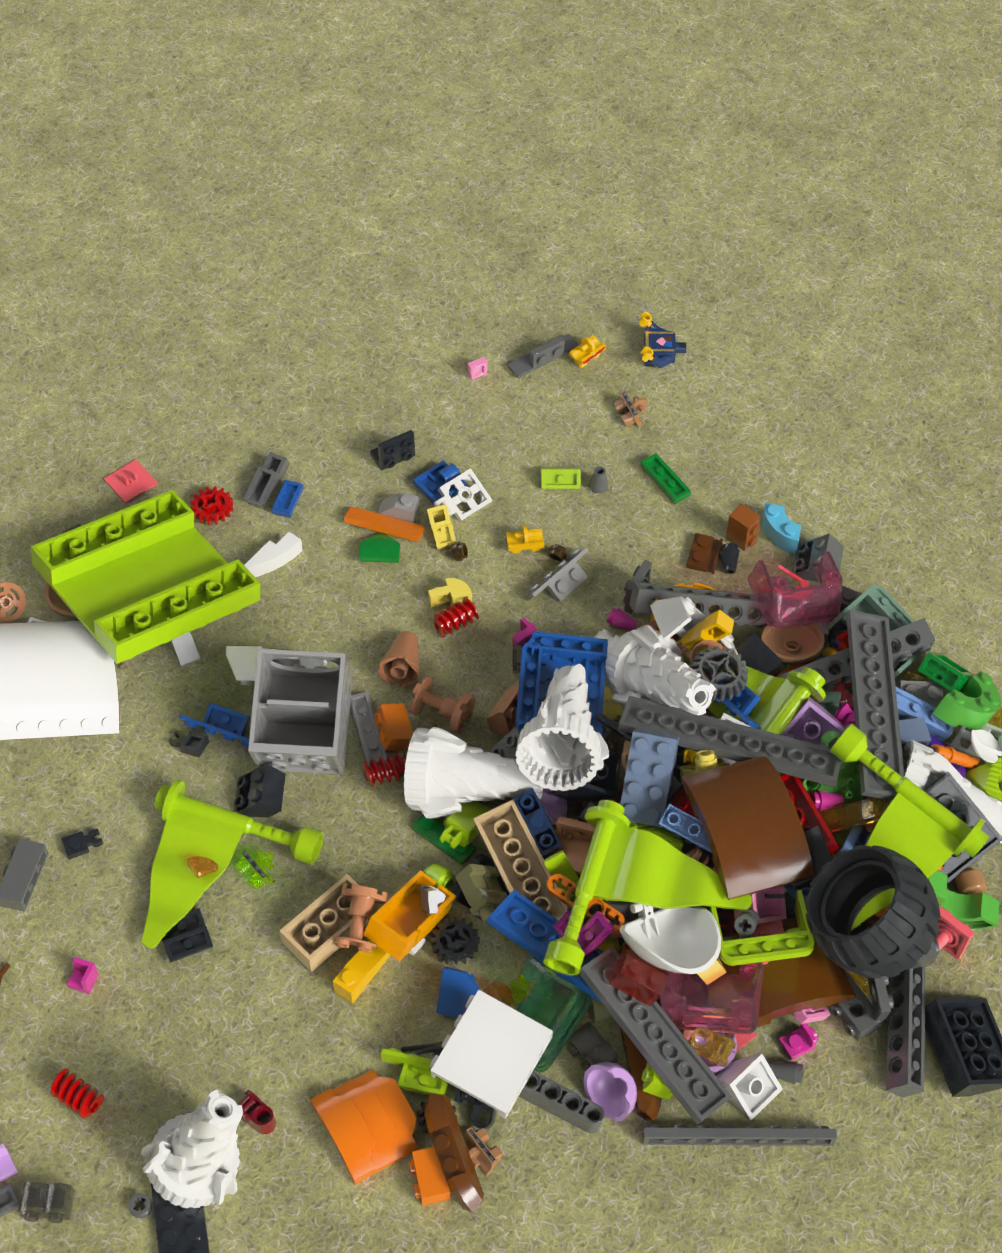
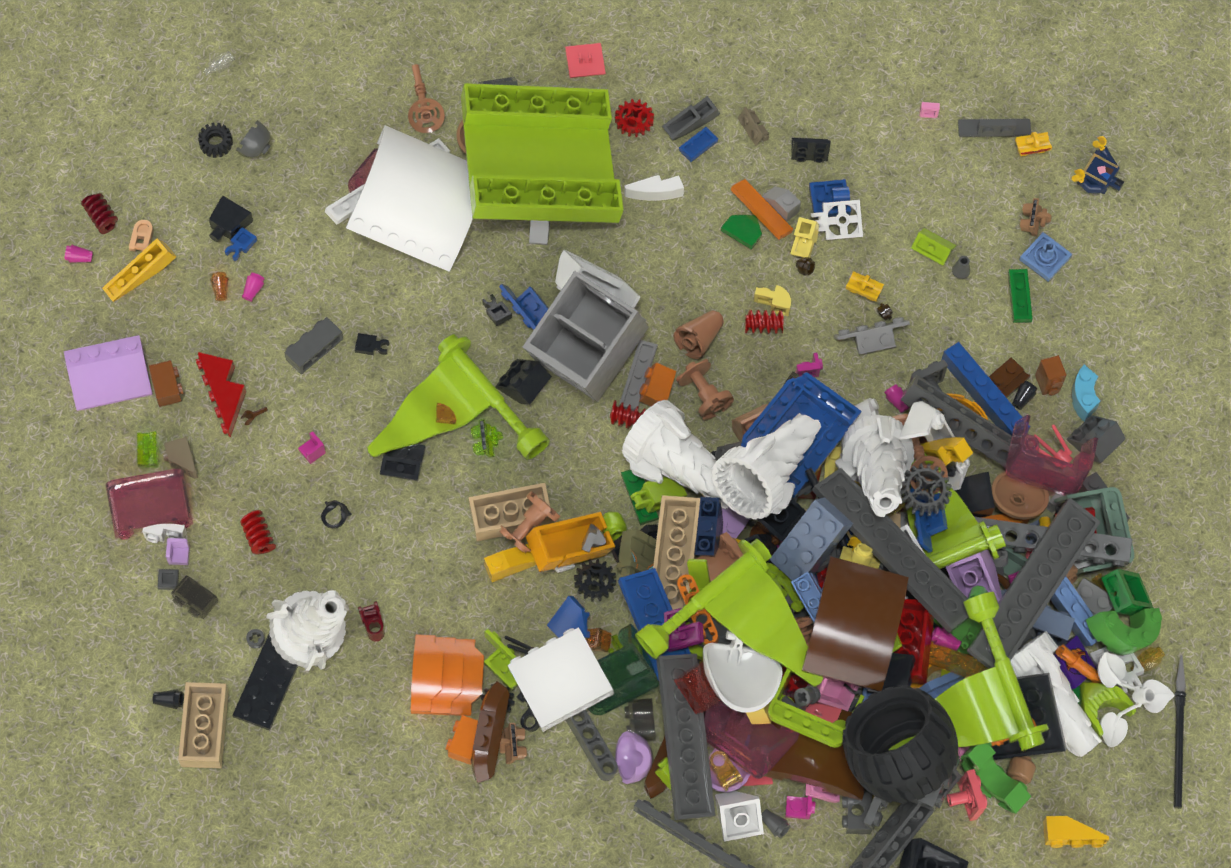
camera: 30 degrees right, 10 degrees up
(136, 1025) = (329, 507): none -> black piece
(327, 459) = (750, 122): none -> dark tan hinge
(663, 435) = (1045, 257): none -> medium blue plate
(690, 570) = (981, 388): none -> blue brick

